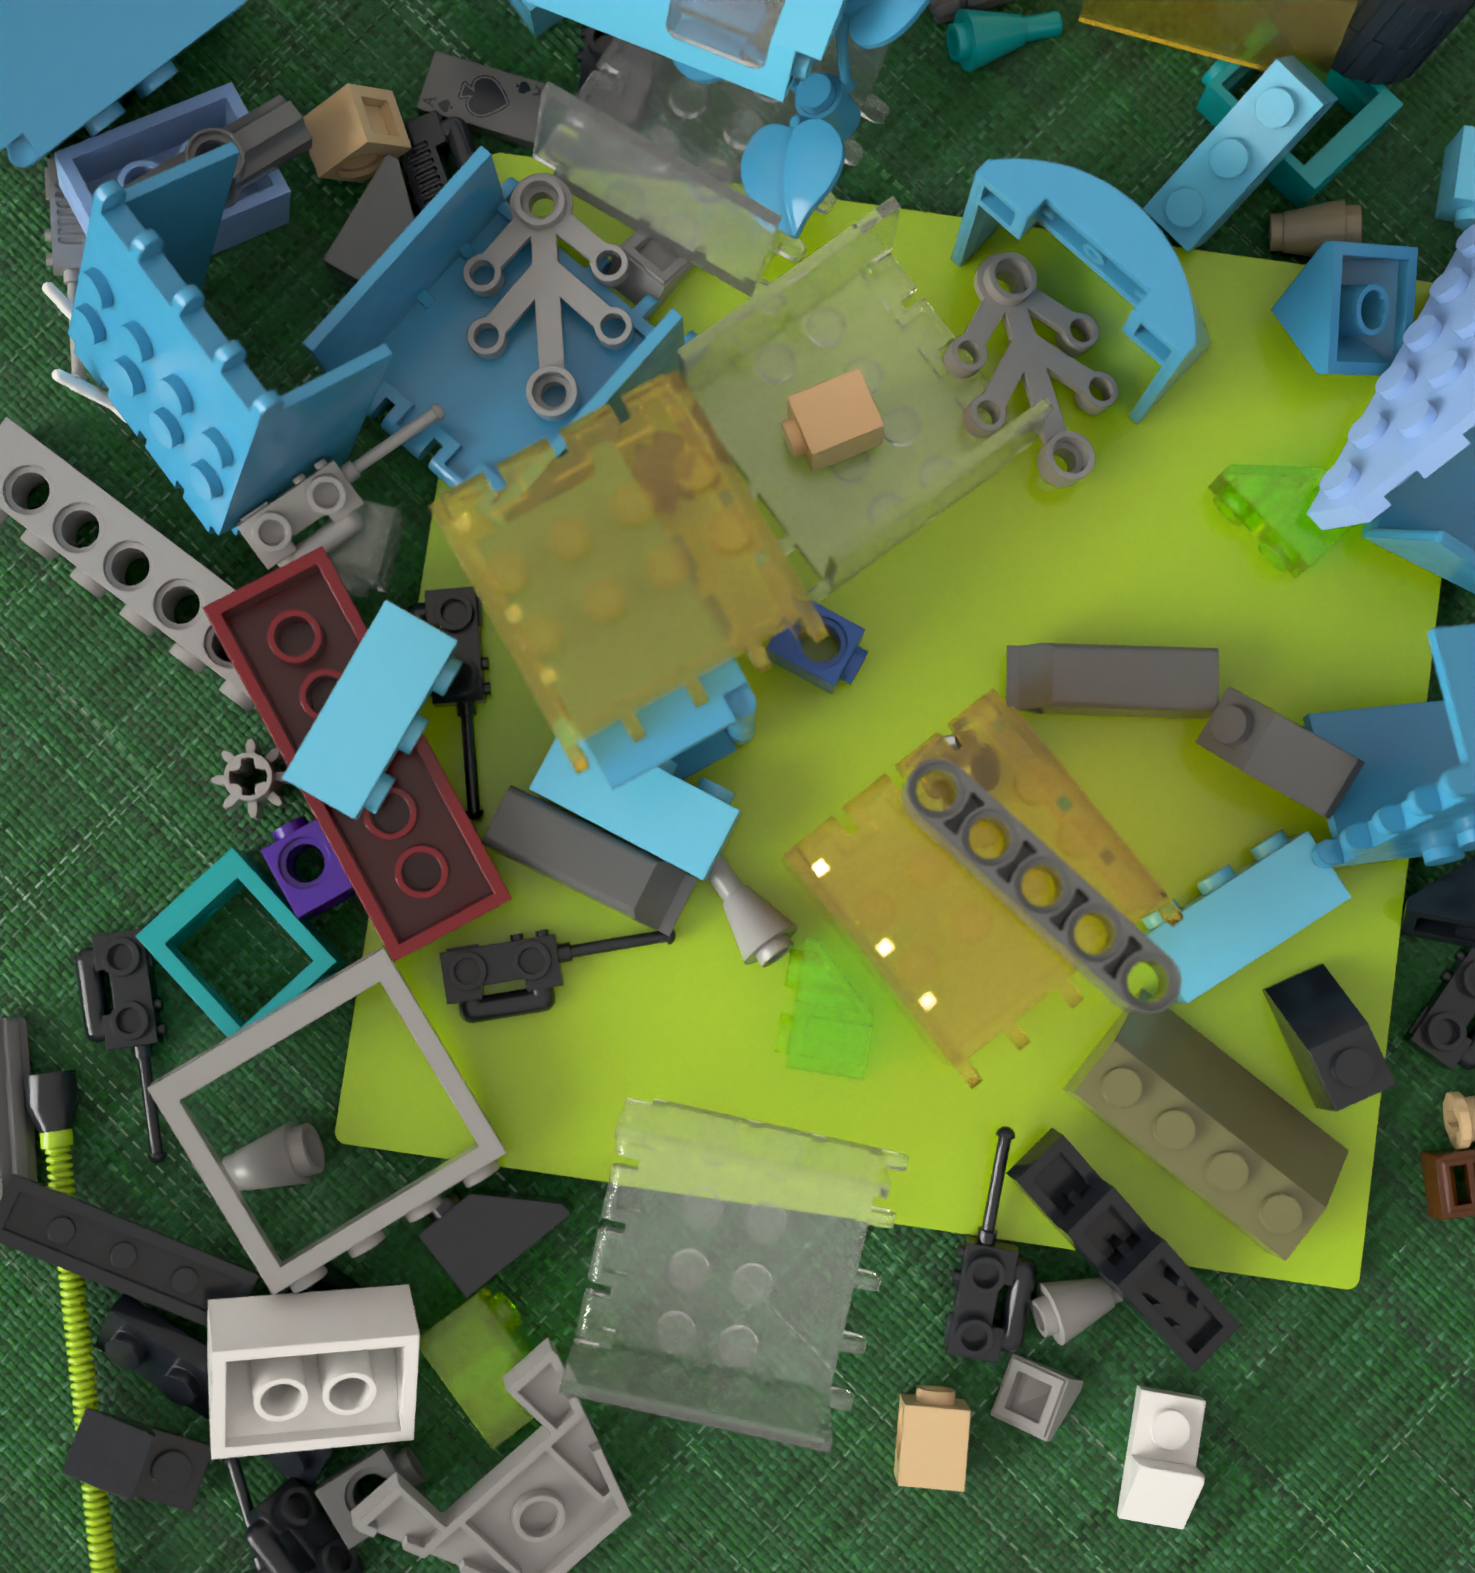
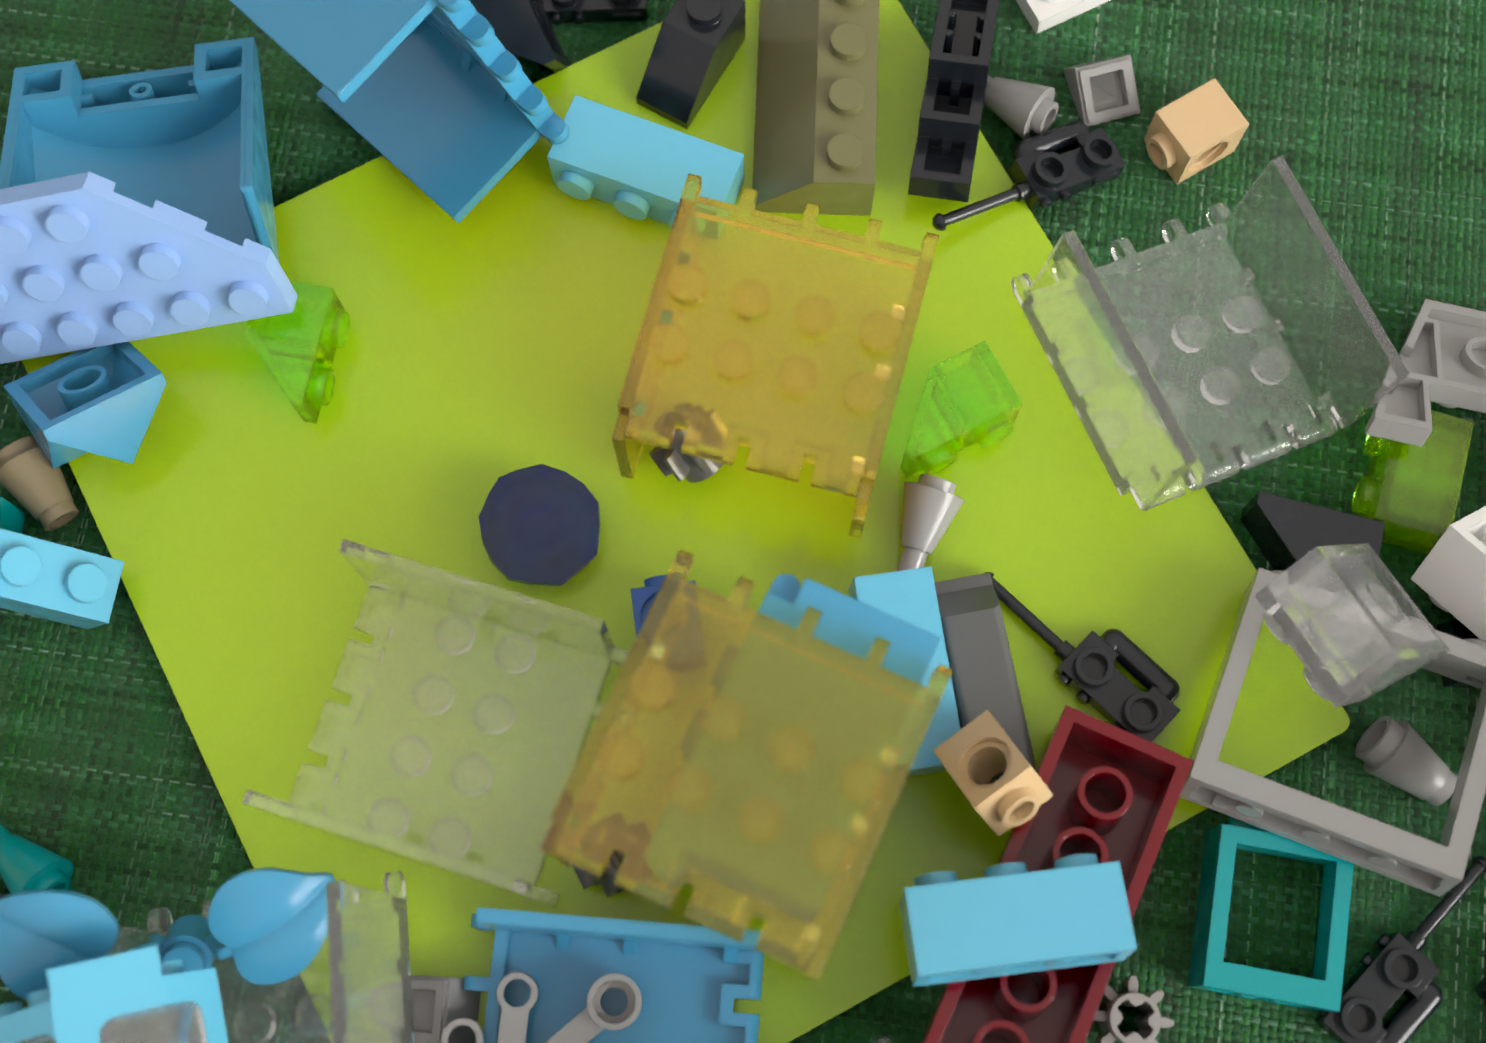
camera: 125 degrees left, 10 degrees down
(312, 897) = (1188, 900): dark purple brick -> none
(402, 1176) = (1348, 622): none -> clear slope
(460, 616) = (864, 942): black piece -> none
(522, 787) = (978, 755): none -> tan brick
(832, 421) = (471, 740): tan brick -> none
(975, 599) = (540, 526): none -> clear blue hat
(1032, 361) = (306, 623): light grey plant -> none
(1072, 897) = (749, 244): dark grey beam -> none
(1110, 238) = (162, 587): dark azure windscreen -> none
(1113, 680) = (529, 379): dark grey piece -> none
(1279, 752) = (501, 212): dark grey slope -> none

